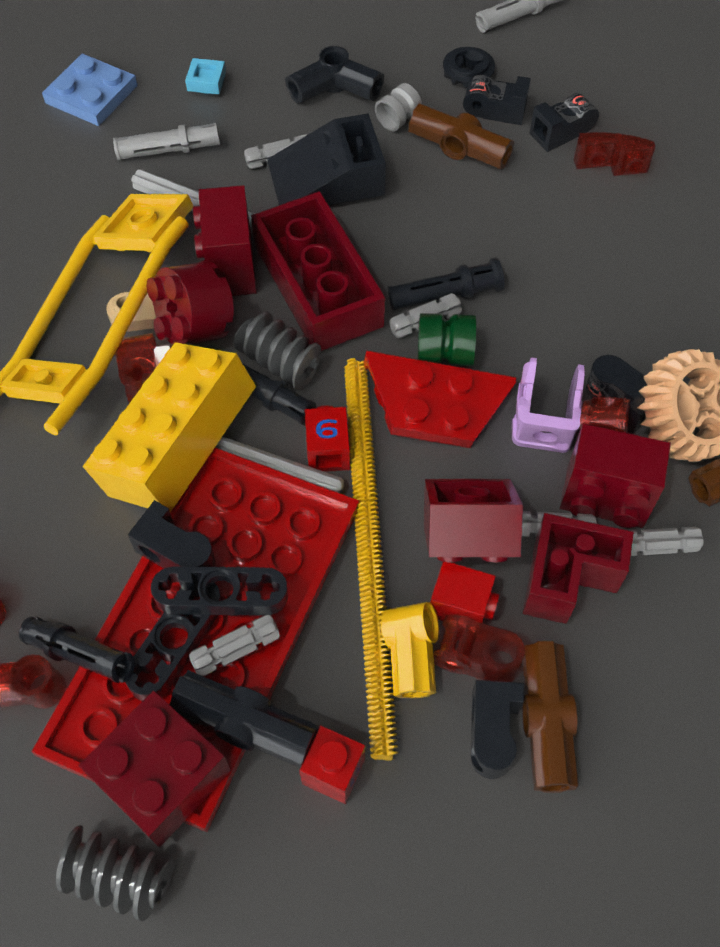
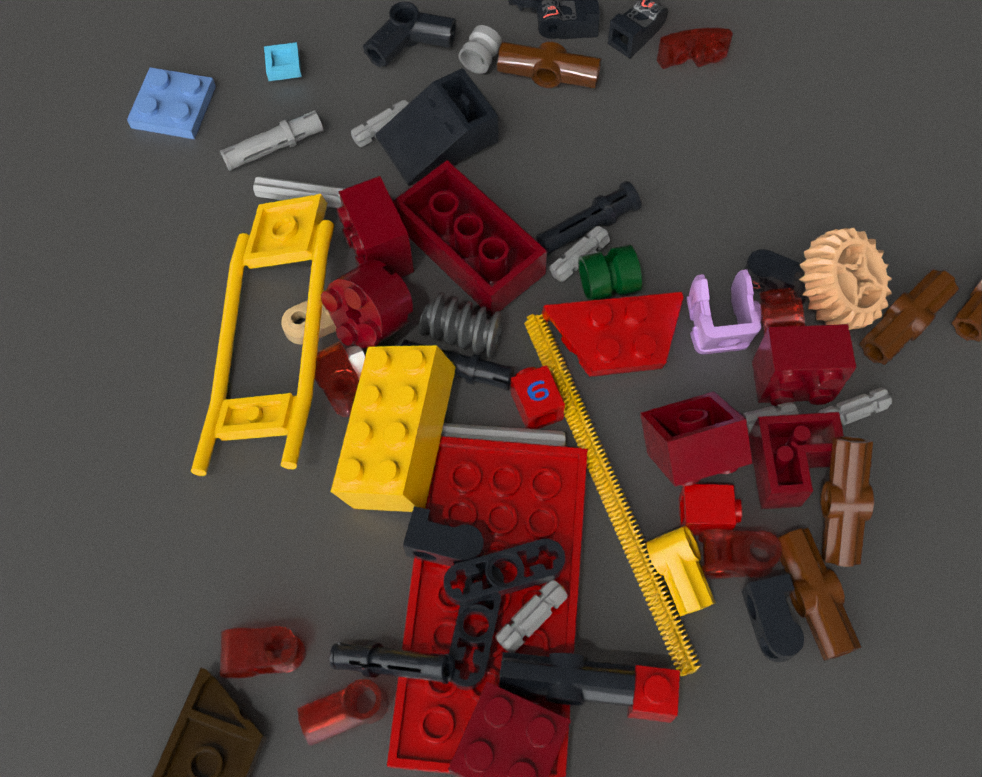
camera: 15 degrees left, 5 degrees up
(612, 626) = (847, 500): none -> reddish brown piece

